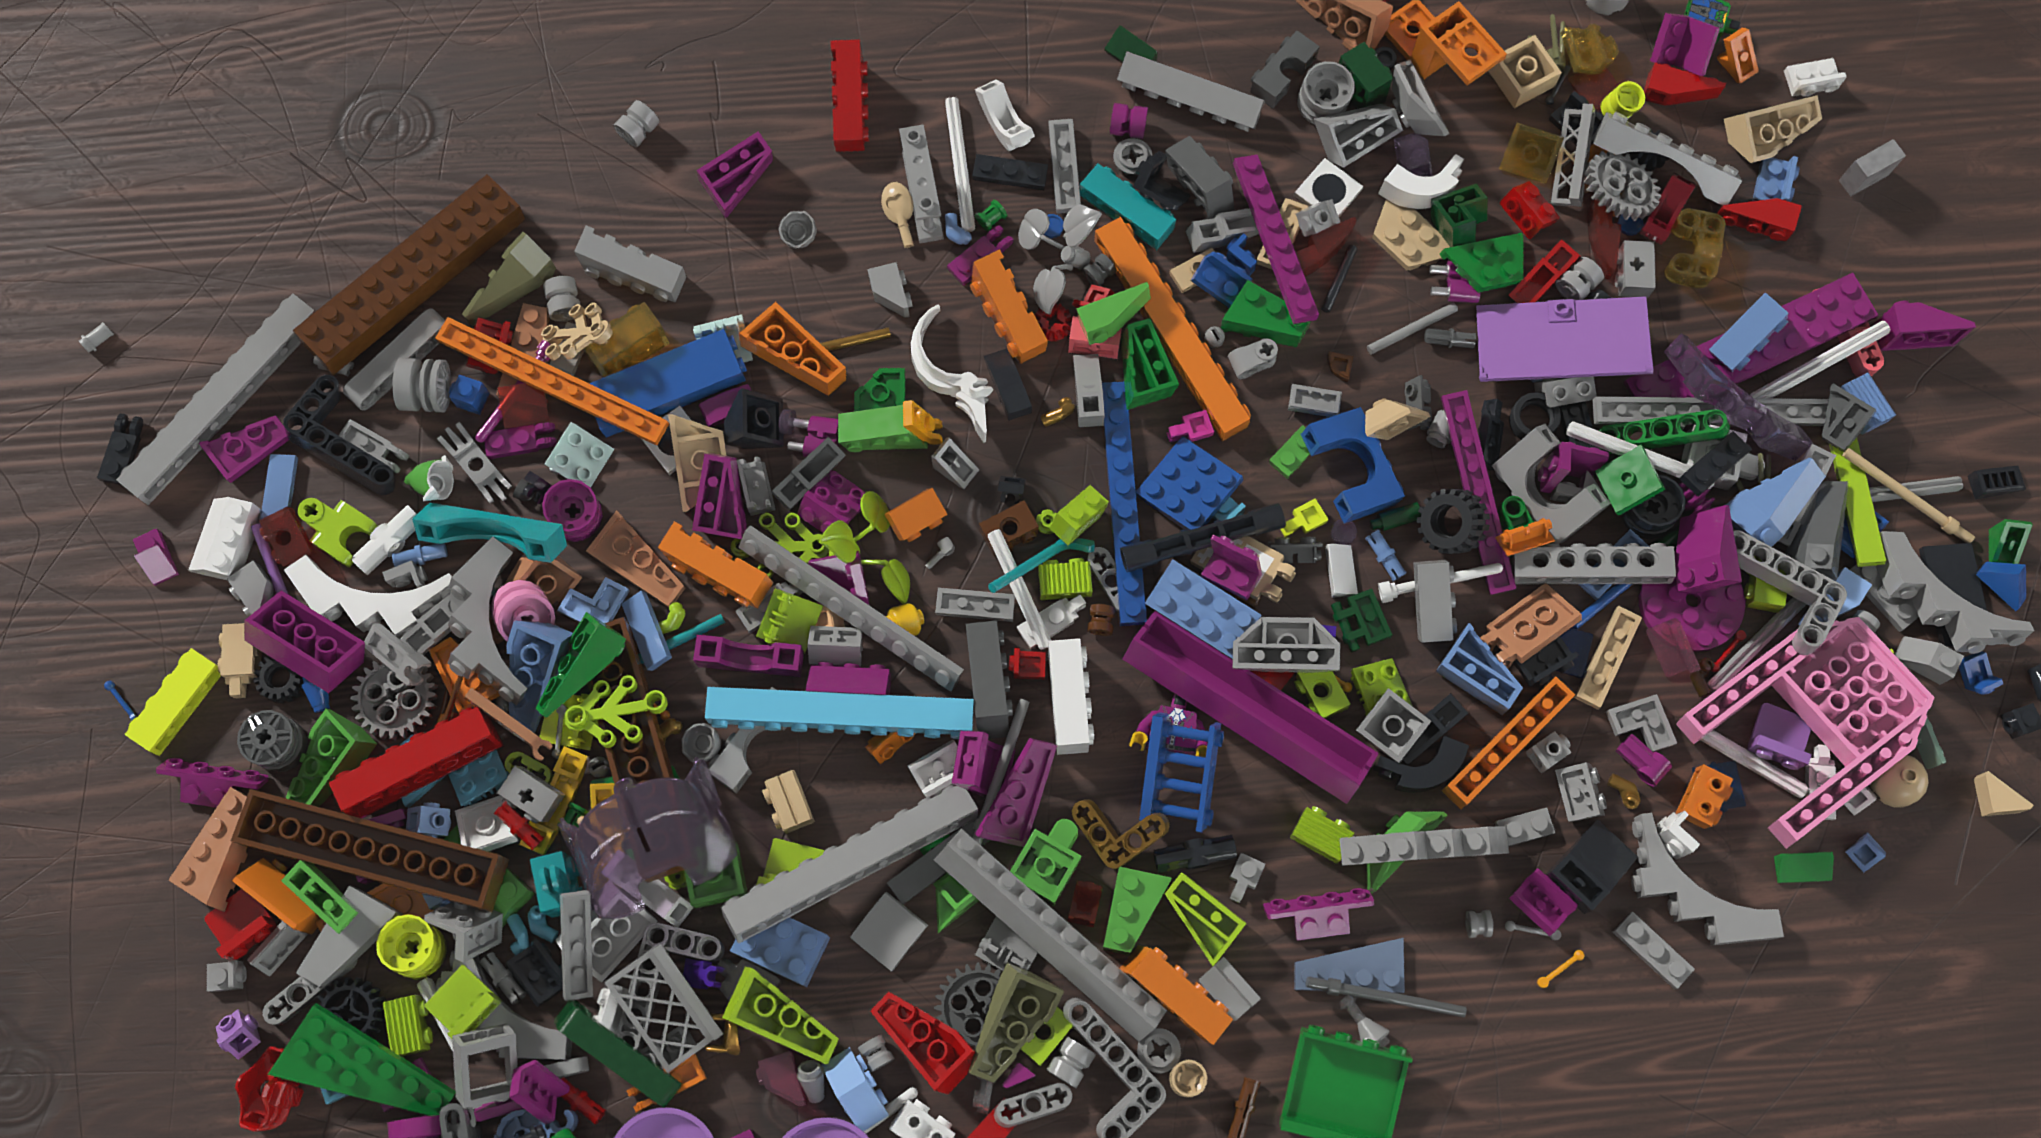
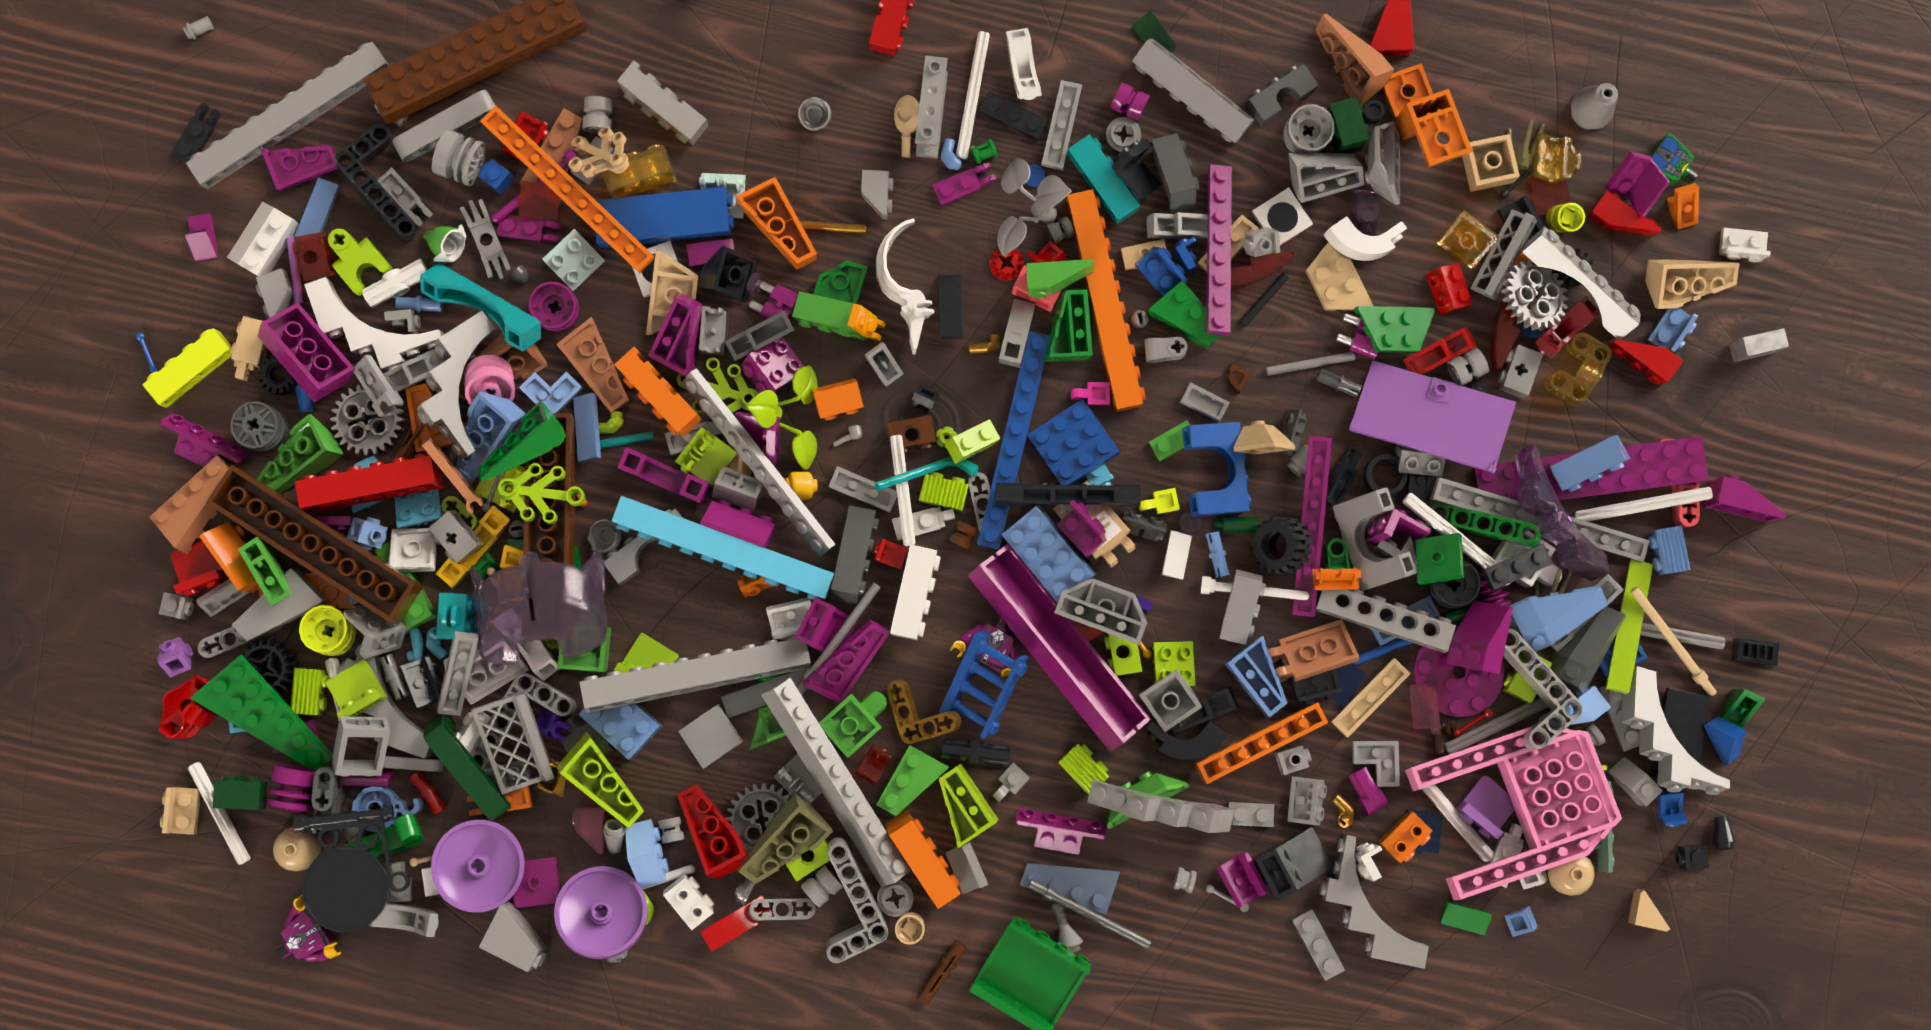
camera: 15 degrees right, 10 degrees up
(519, 825) = (438, 560): red pin -> none
(521, 272) = (569, 81): olive wedge -> none
(537, 1090) = (395, 777): magenta bracket -> none
(538, 485) = (532, 275): black tile -> none
(670, 726) = (583, 514): pearl gold arm -> none
(735, 172) = (776, 45): magenta wedge -> none
(788, 801) = (661, 606): tan brick -> none
(1007, 307) = (970, 241): orange wedge -> none
(1018, 1075) = (777, 882): magenta slope -> none
(1368, 616) = (1185, 602): dark green plate -> none
(1458, 213) = (1383, 275): dark green brick -> none
(1544, 981) = (1220, 941): light orange hinge -> none
(1845, 418) = (1645, 559): dark grey wing -> none

